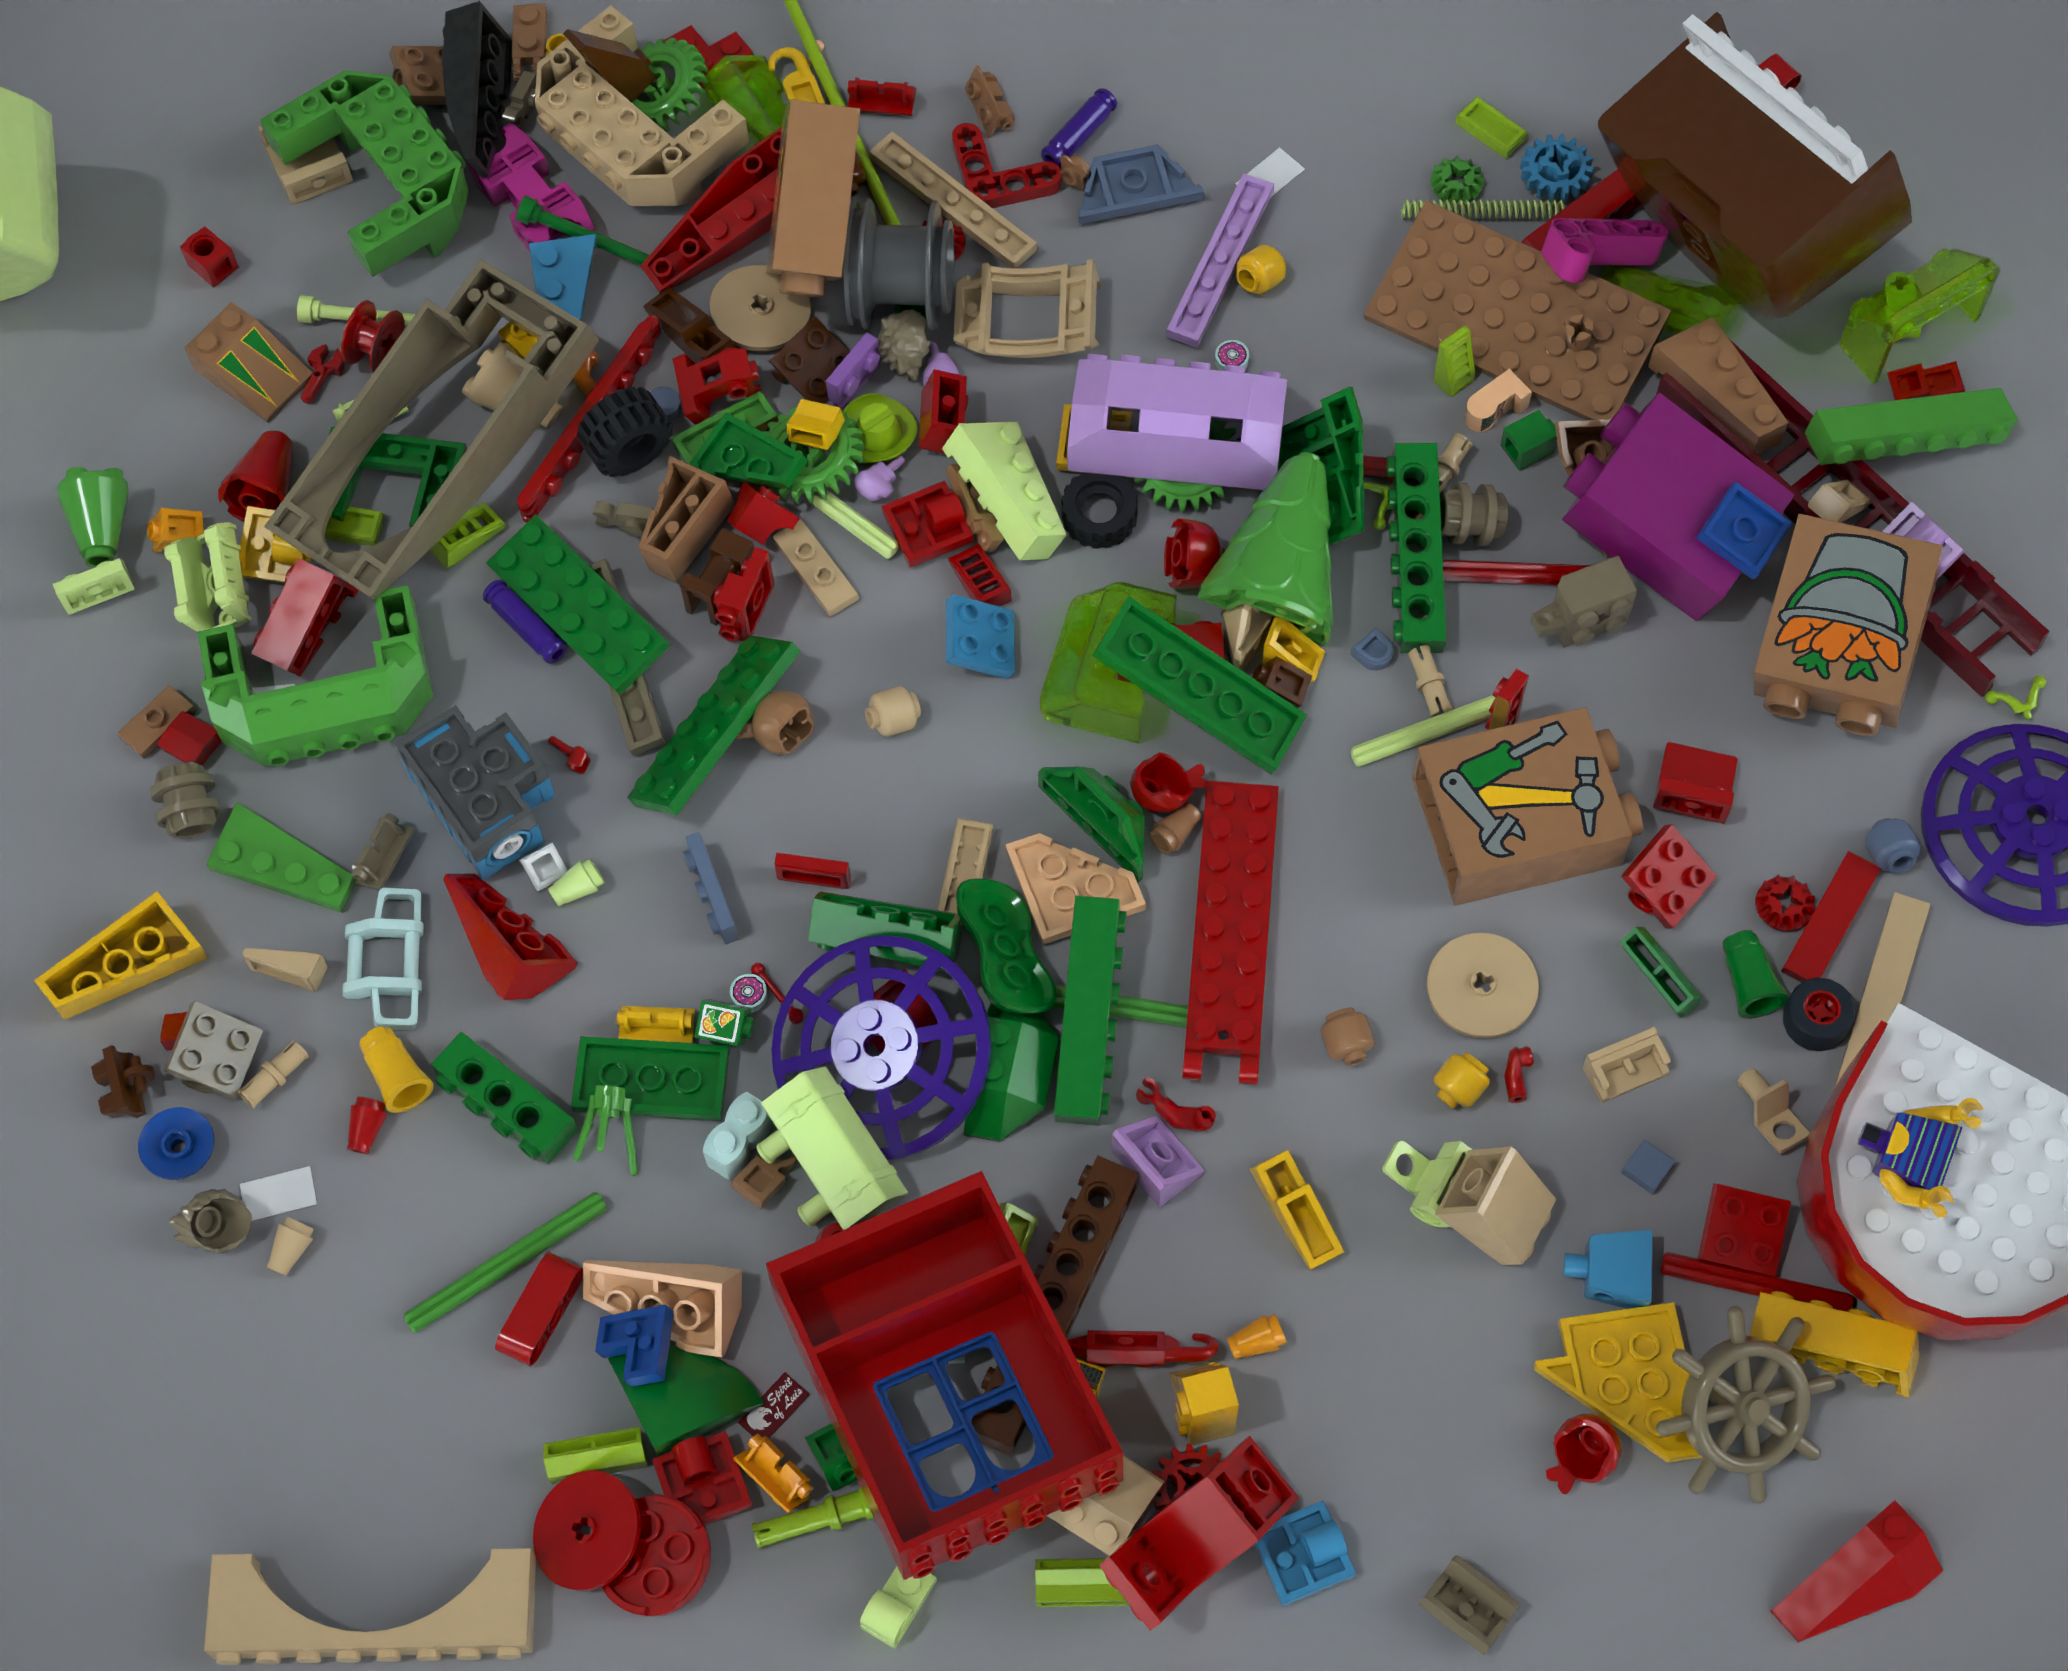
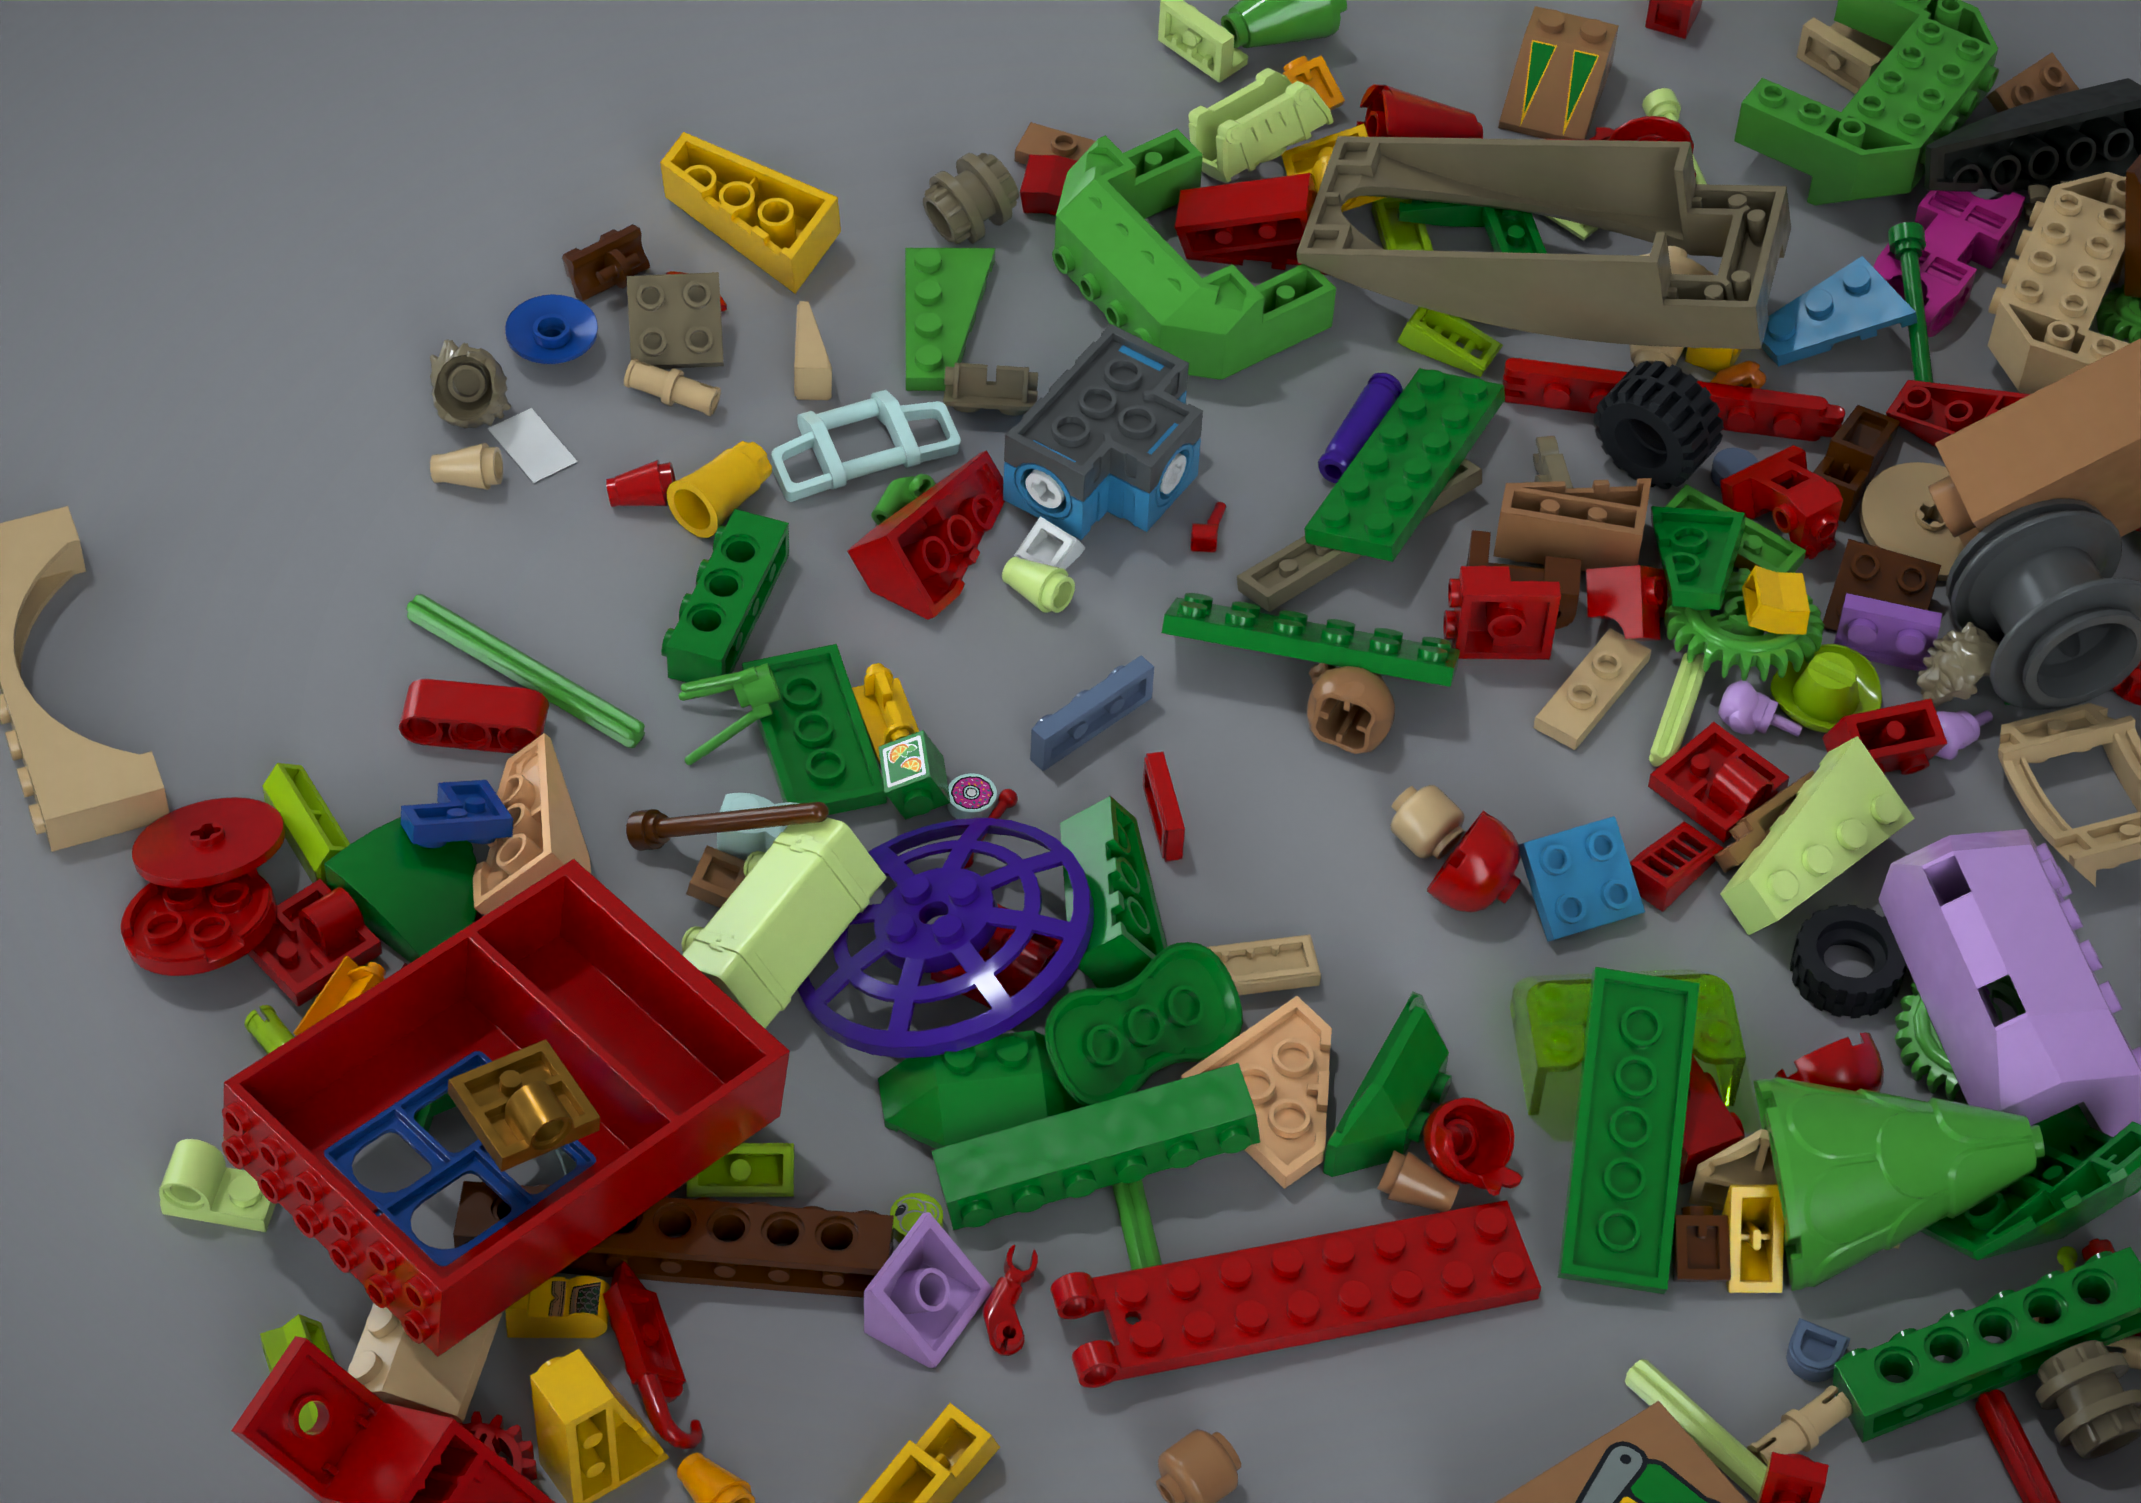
camera: 65 degrees right, 15 degrees down
(450, 946) = (899, 494): none -> bright green arm
(696, 1215) = (653, 829): none -> reddish brown piece
(946, 695) = (1479, 868): none -> red cylinder
(989, 1354) = (523, 1105): none -> pearl gold plate
(1087, 1143) = (909, 1209): none -> lime tile

